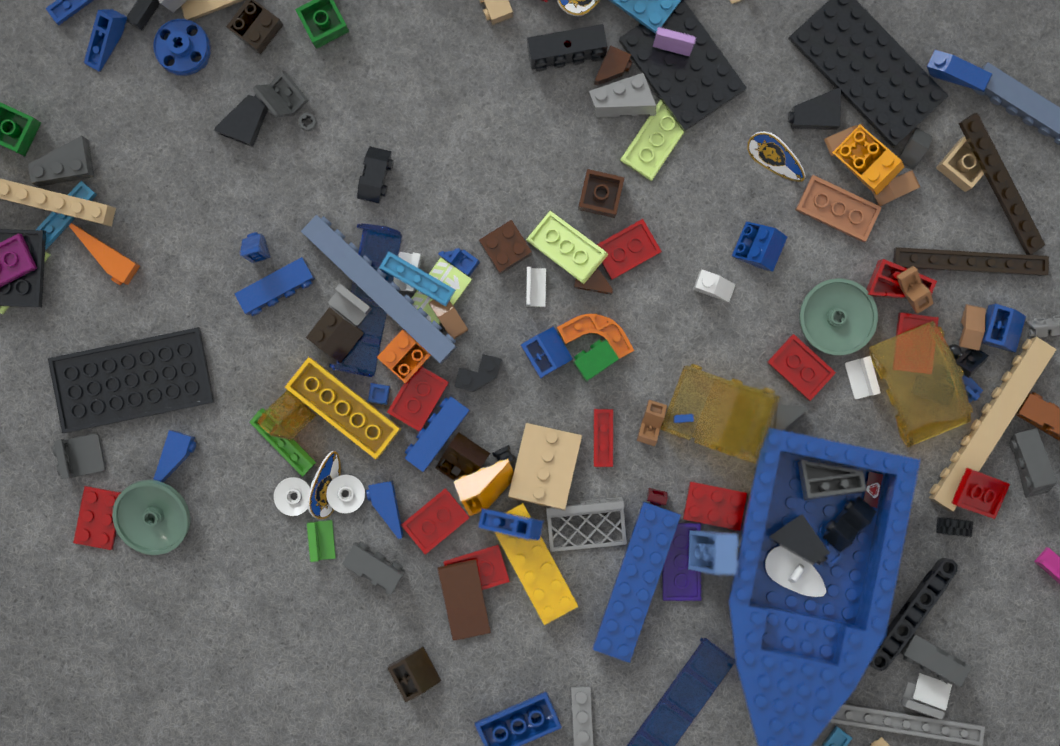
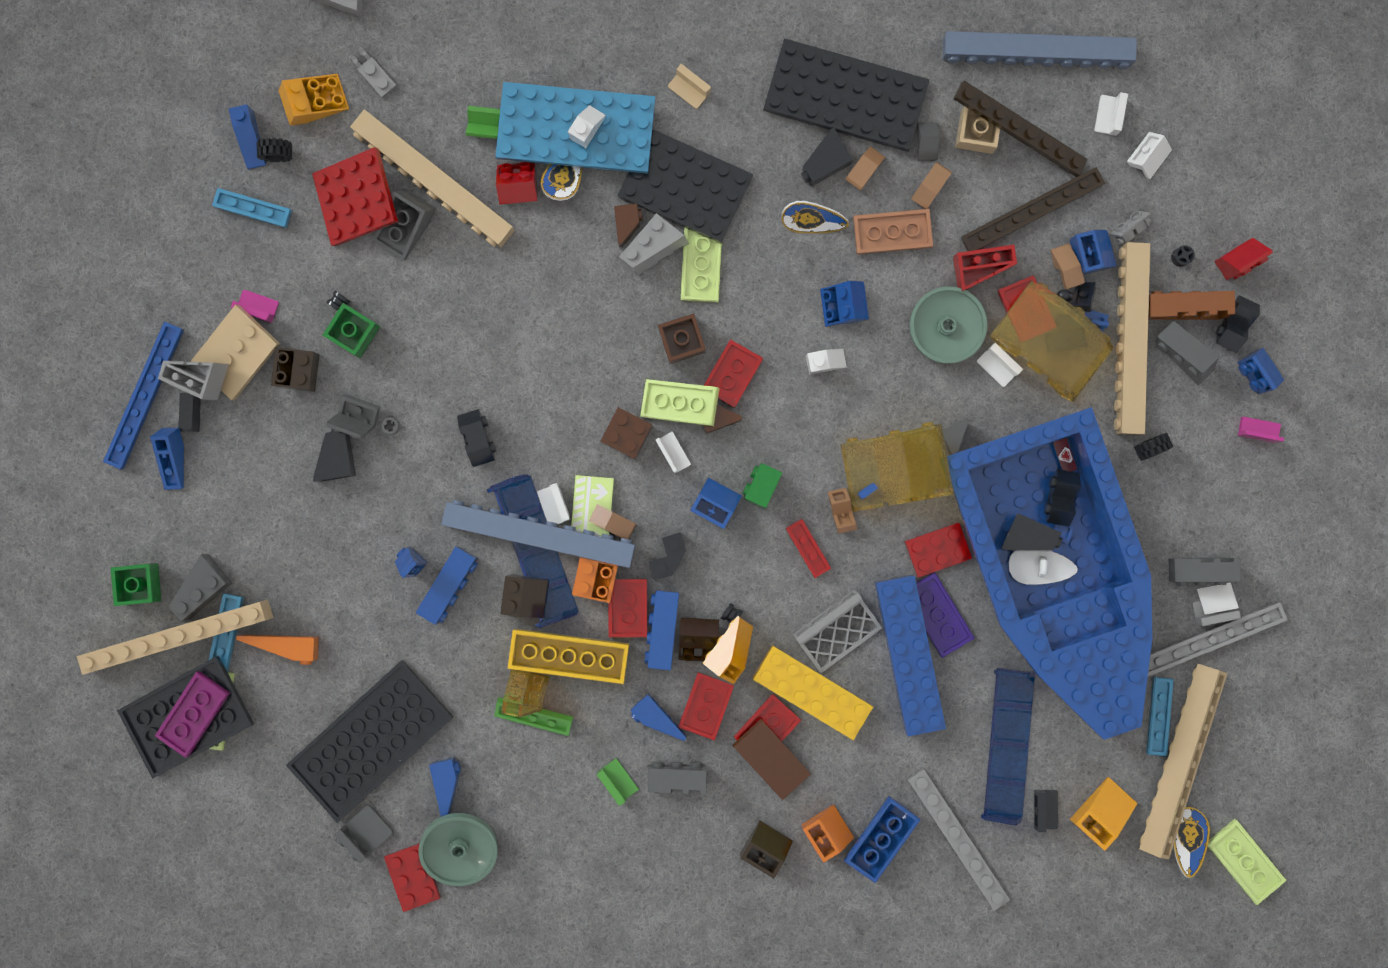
camera: 30 degrees left, 0 degrees up
(184, 55) = (249, 432): blue piece -> none
(283, 498) = (561, 762): white dish -> none
(317, 501) = (594, 733): shield -> none
(349, 305) = (521, 563): light grey panel -> none
(352, 501) = (624, 731): white dish -> none
(378, 394) = (592, 625): blue tile -> none
(417, 279) = (567, 506): dark azure tile -> none
(461, 260) = (595, 467): blue slope -> none
(475, 692) = (827, 833): none -> orange slope
(511, 524) = (774, 671): blue slope -> none
(545, 466) = (773, 603): tan plate -> none
(567, 47) = (577, 230): black brick -> none
(598, 325) = (747, 453): orange plate -> none
(657, 497) = (884, 571): dark red plate -> none
(674, 41) = (667, 171): lavender tile -> none
(713, 552) = (961, 591): medium blue brick -> none
(801, 367) = (941, 387): red plate -> none
(829, 481) = (1021, 472): dark grey wedge -> none
(868, 159) = (894, 174): light orange slope -> none
(914, 290) = (1000, 264): medium nougat slope -> none
(914, 612) = (1162, 539): black beam -> none
(958, 71) = (926, 53): blue slope -> none
(980, 493) = (1158, 404): red plate -> none

